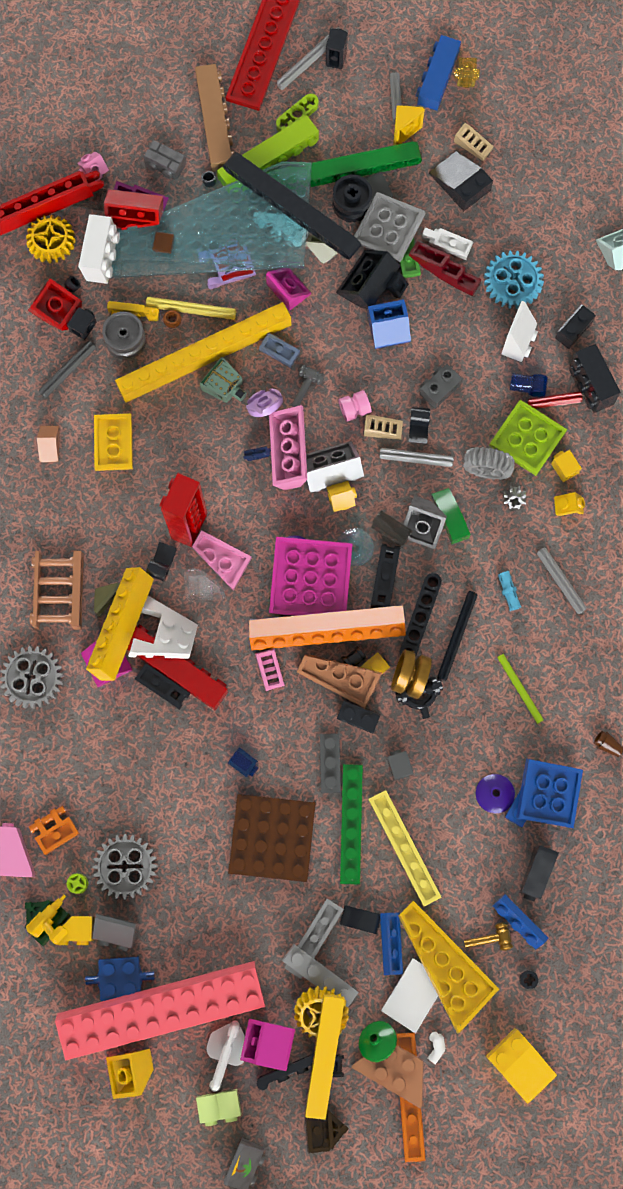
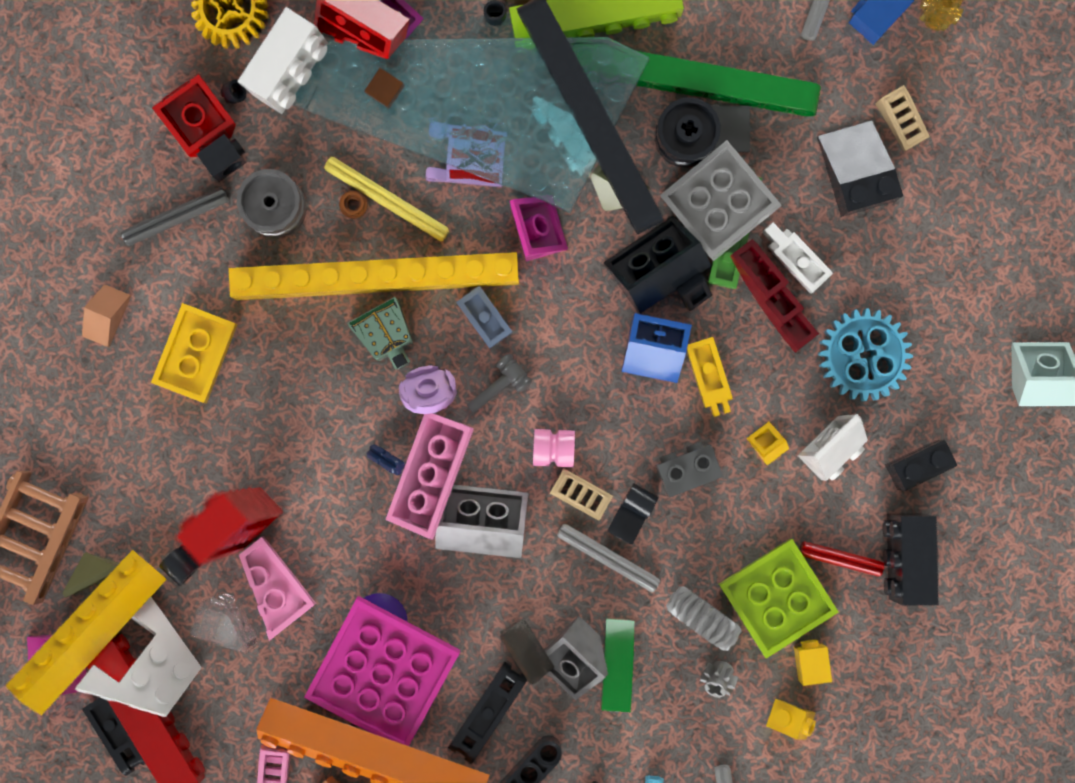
camera: 25 degrees right, 10 degrees up
(150, 313) = (304, 172): yellow hinge -> none
(341, 496) = (476, 573): yellow brick -> none
(363, 540) = (470, 667): clear light blue dish -> none
(407, 122) = (816, 50): yellow slope -> none
(428, 328) = (709, 375): none -> yellow hinge
(481, 353) = (768, 443): none -> yellow slope
(534, 385) = (819, 523): clear blue piece -> none

